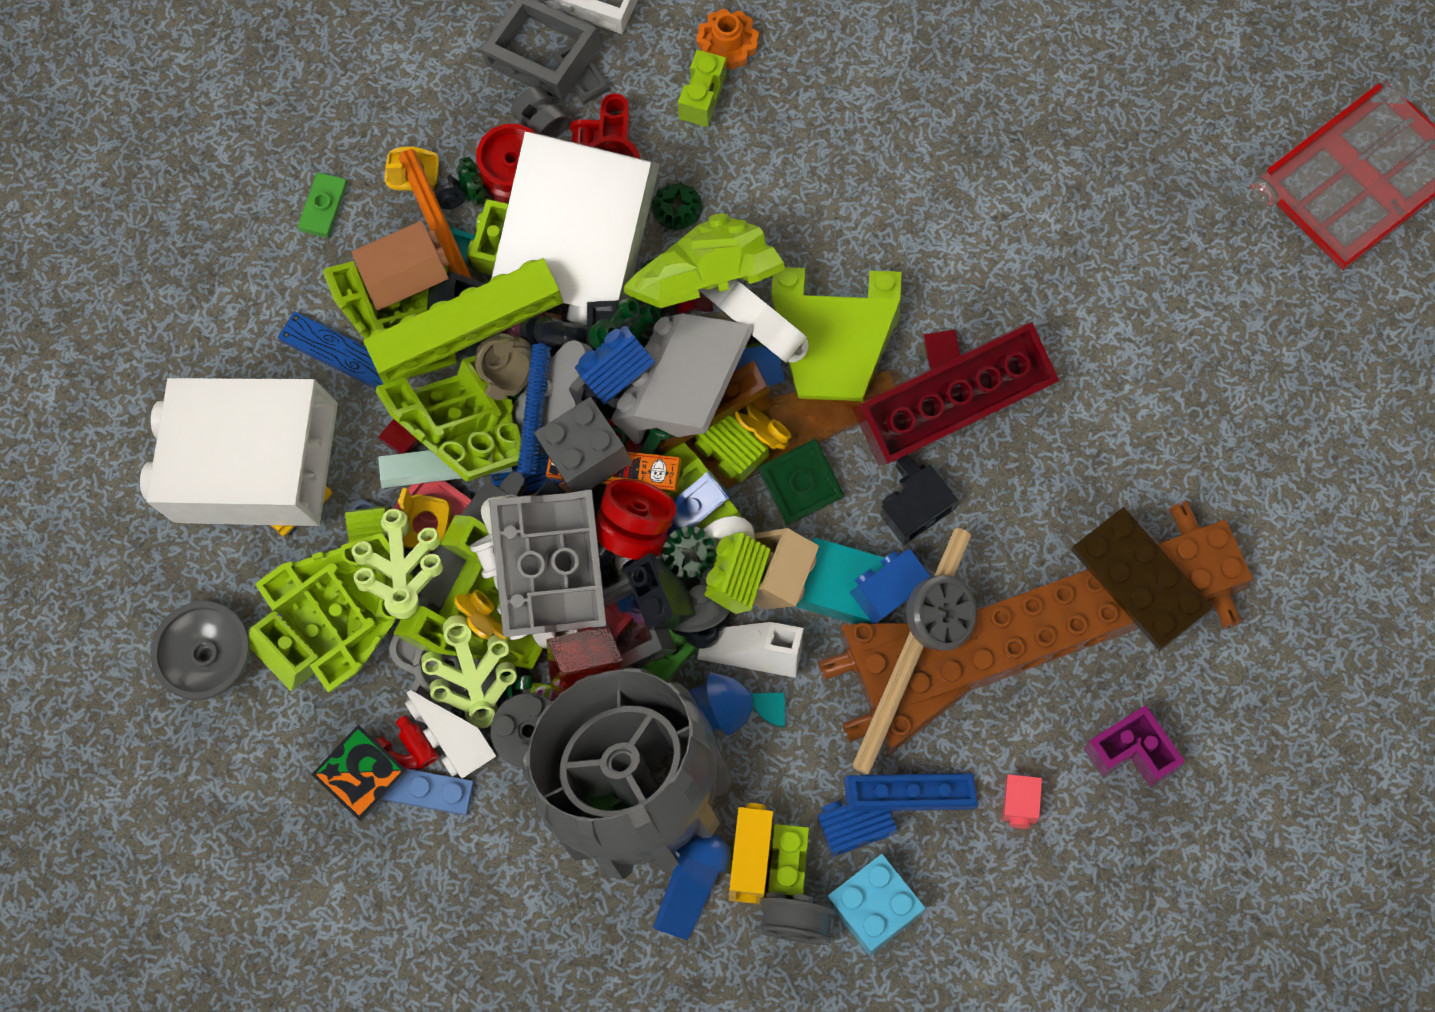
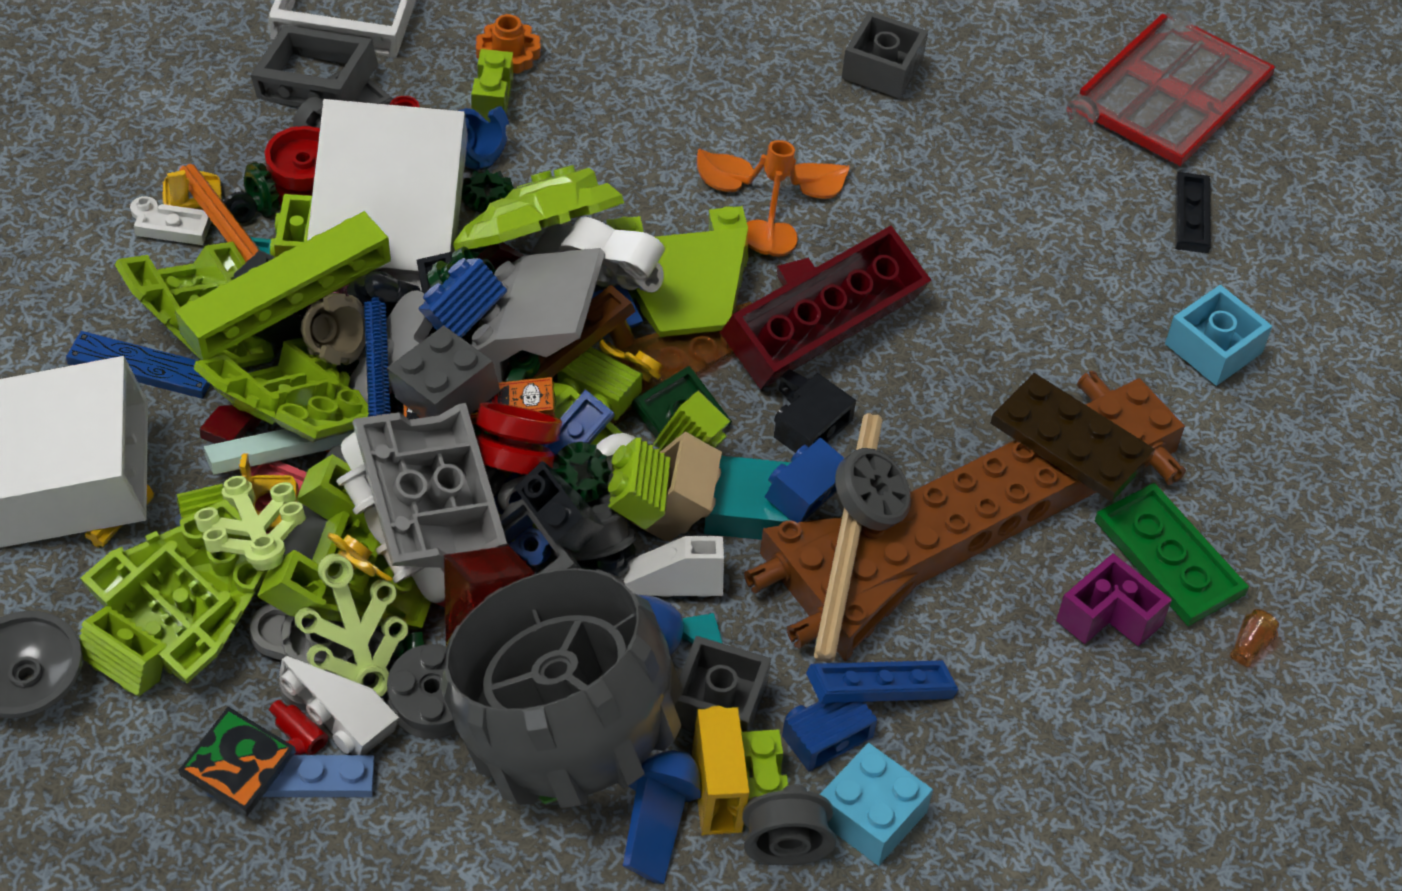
camera: 20 degrees left, 20 degrees down
(322, 205) = (97, 234): bright green plate -> none
(385, 201) = (169, 221): none -> white hinge
(401, 264) = (202, 252): nougat brick -> none
(674, 139) = (484, 138): none -> blue helmet
(770, 774) = (724, 678): none -> dark grey brick
(801, 514) = (697, 418): none -> lime brick
(986, 234) = (814, 179): none -> orange plant
(1021, 801) = (1005, 675): coral brick -> none
(1084, 101) = (884, 54): none -> dark grey brick
(1207, 701) = (1171, 553): none -> green plate
(1256, 799) = (1255, 635): none -> clear orange cone
(1318, 477) = (1218, 334): none -> medium azure brick
(1340, 325) = (1192, 212): none -> black tile

